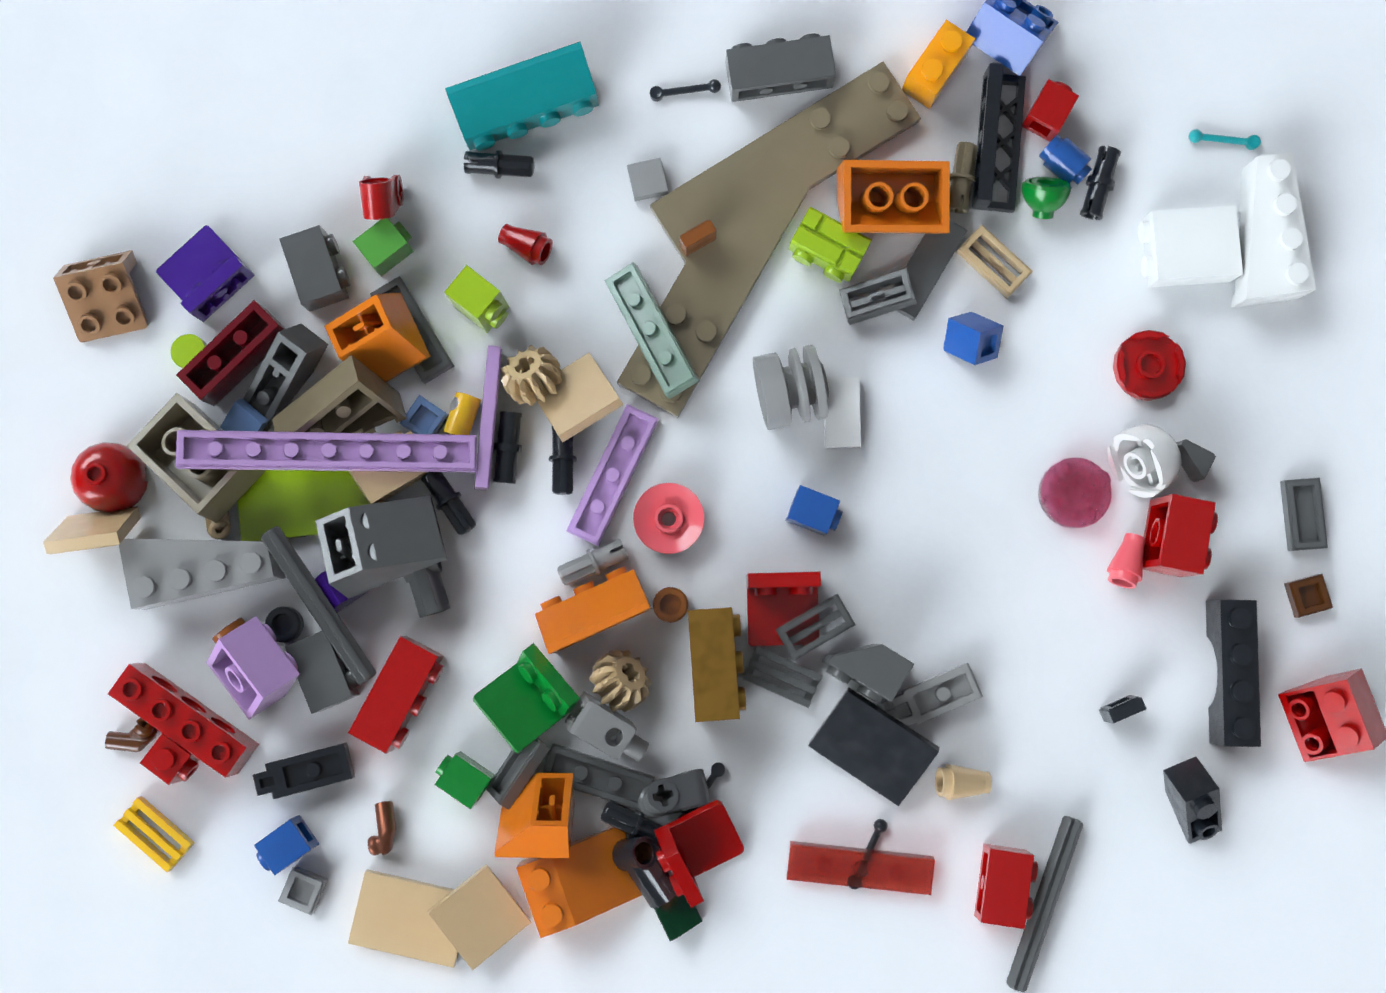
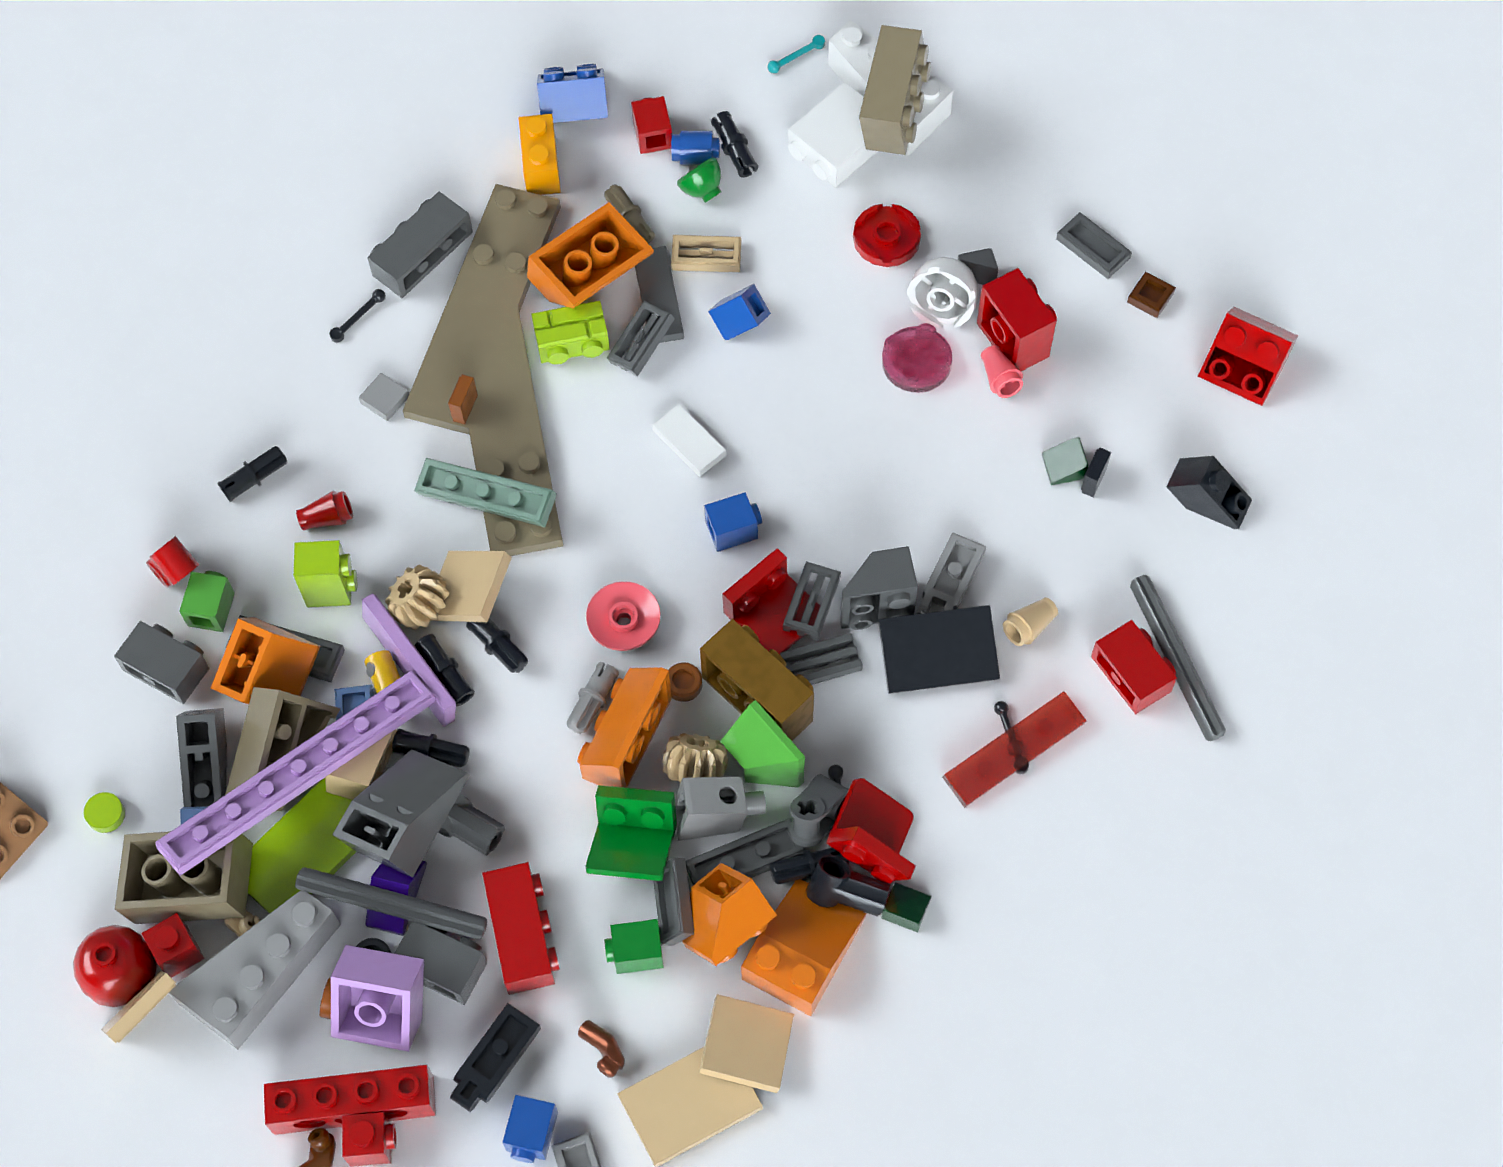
camera: 40 degrees left, 20 degrees down
(153, 501) = (173, 945): none -> red brick
(204, 273) = (67, 739): dark purple bracket -> none
(231, 354) = (146, 773): dark red brick -> none
(523, 97) = (231, 406): teal slope -> none
(612, 475) = (549, 626): lavender tile -> none
(671, 715) = (764, 749): none -> bright green slope
(791, 387) = (632, 444): light grey wheel -> none
(990, 110) = (630, 179): black fence -> none
(1108, 678) = (1065, 462): none -> slope
(1236, 704) = (1176, 404): black arch -> none
(1264, 258) = (894, 90): none -> dark tan brick

